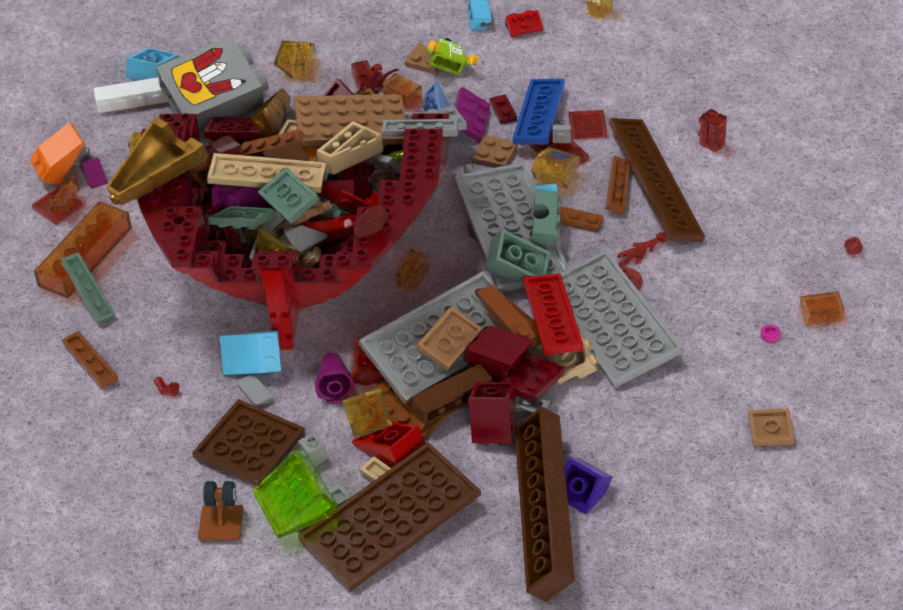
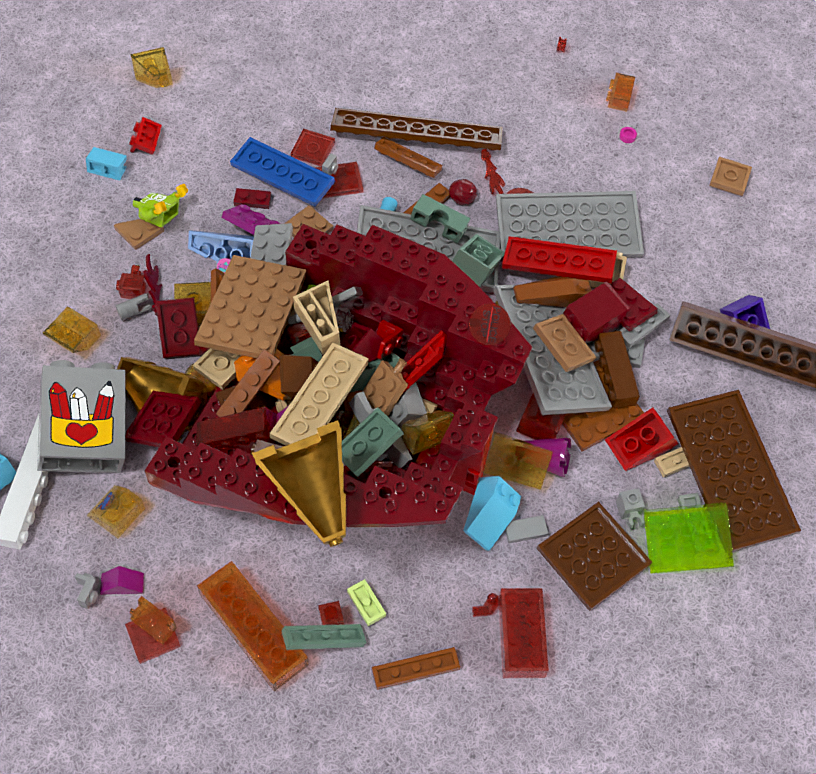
camera: 75 degrees left, 15 degrees up
(57, 154) = (90, 605): orange slope -> none
(113, 291) = (330, 614): none -> clear red brick
(135, 311) = (366, 602): none -> yellowish green plate
(148, 413) = (523, 633): none -> clear red brick
(222, 520) = (681, 609): dark orange plate -> none
(288, 195) = (377, 387): sand green plate -> none
(311, 349) = (517, 460): none -> clear yellow slope
(346, 80) = (129, 308): none -> light grey hinge
(367, 413) = (608, 443): clear yellow slope -> none
(397, 128) = (343, 246): light grey tile -> none
(399, 85) = (180, 263): clear orange brick -> none
(493, 412) = (655, 345): dark red slope -> none
(555, 167) = (364, 187): clear yellow slope -> none
(602, 234) = (463, 191): none -> dark red piece
(712, 130) = (387, 66): clear red brick -> none

